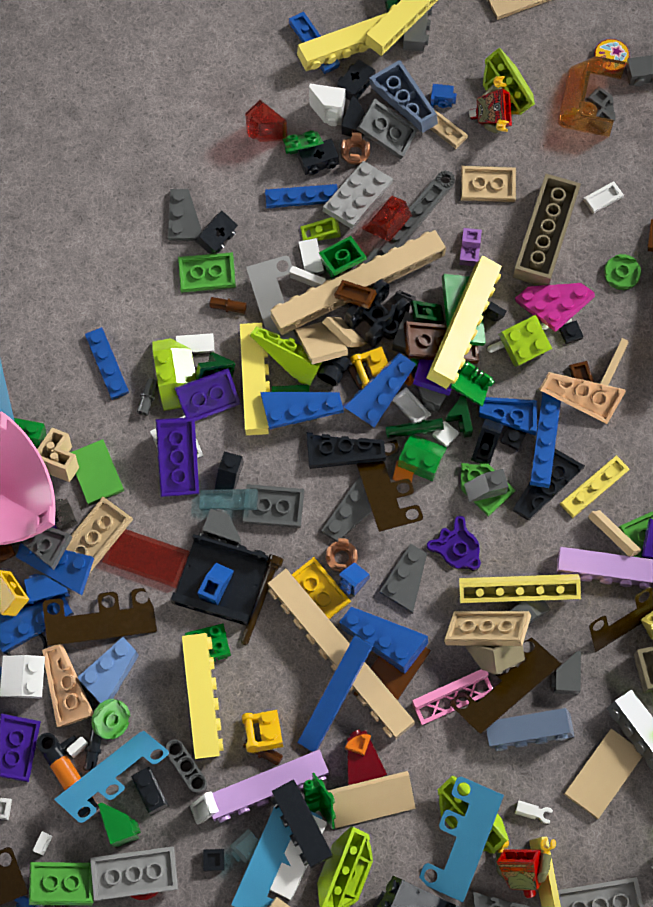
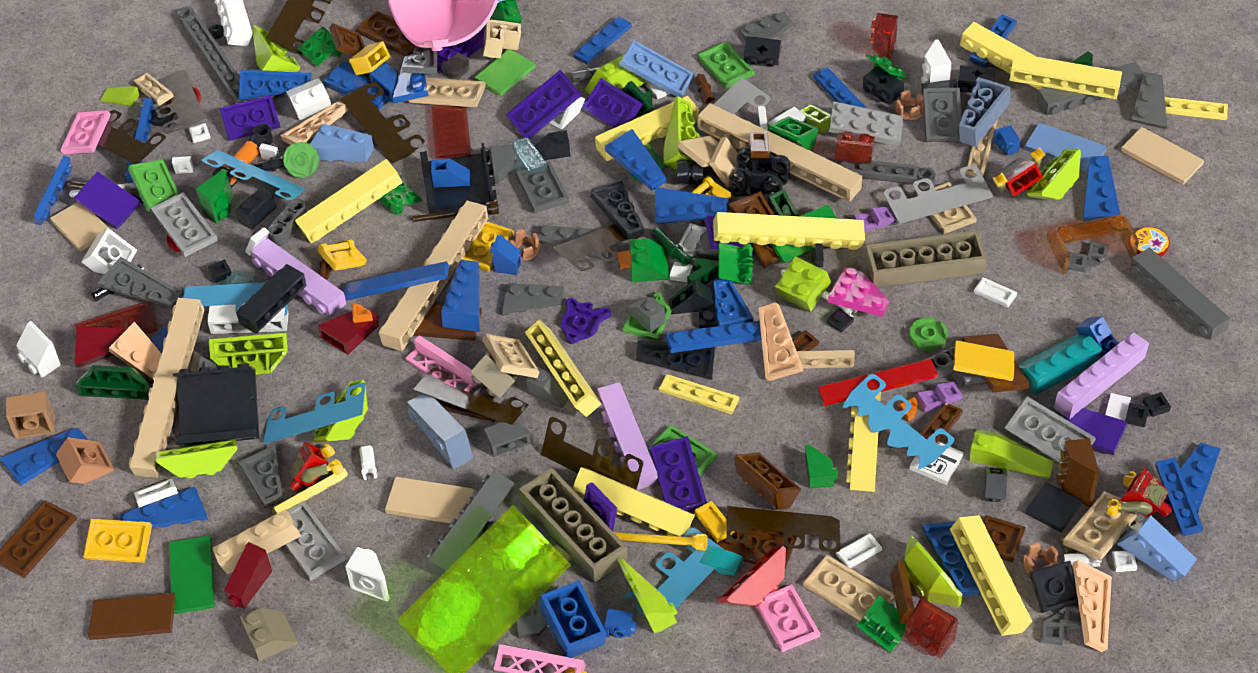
camera: 65 degrees right, 20 degrees down
(187, 334) = (656, 69): none -> medium blue tile
(319, 799) = (300, 305): green hinge -> none
(372, 799) = (319, 344): tan tile -> none
(400, 294) = (791, 191): black plate -> none
(469, 57) = (1054, 141): none -> medium blue tile
(481, 184) = (935, 201): none -> light grey piece
(546, 63) = (1100, 190): none -> blue wing
(614, 533) = (659, 419): tan tile -> none

